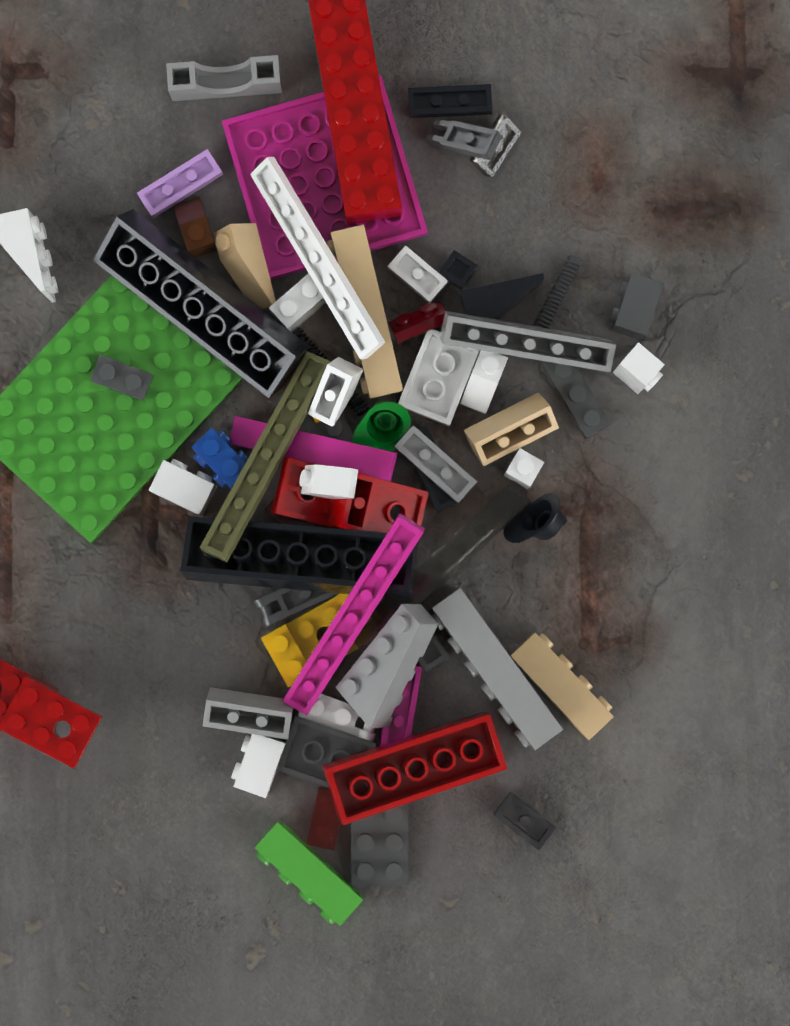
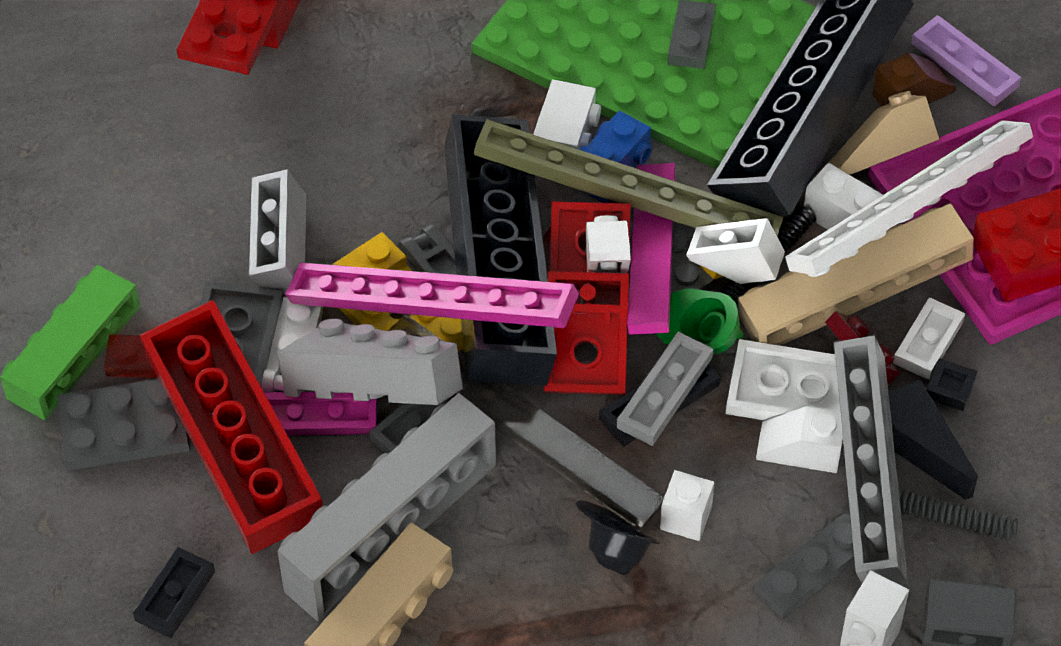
camera: 80 degrees right, 30 degrees down
(259, 764) = (207, 257): white brick -> none
(511, 429) = (740, 476): tan brick -> none

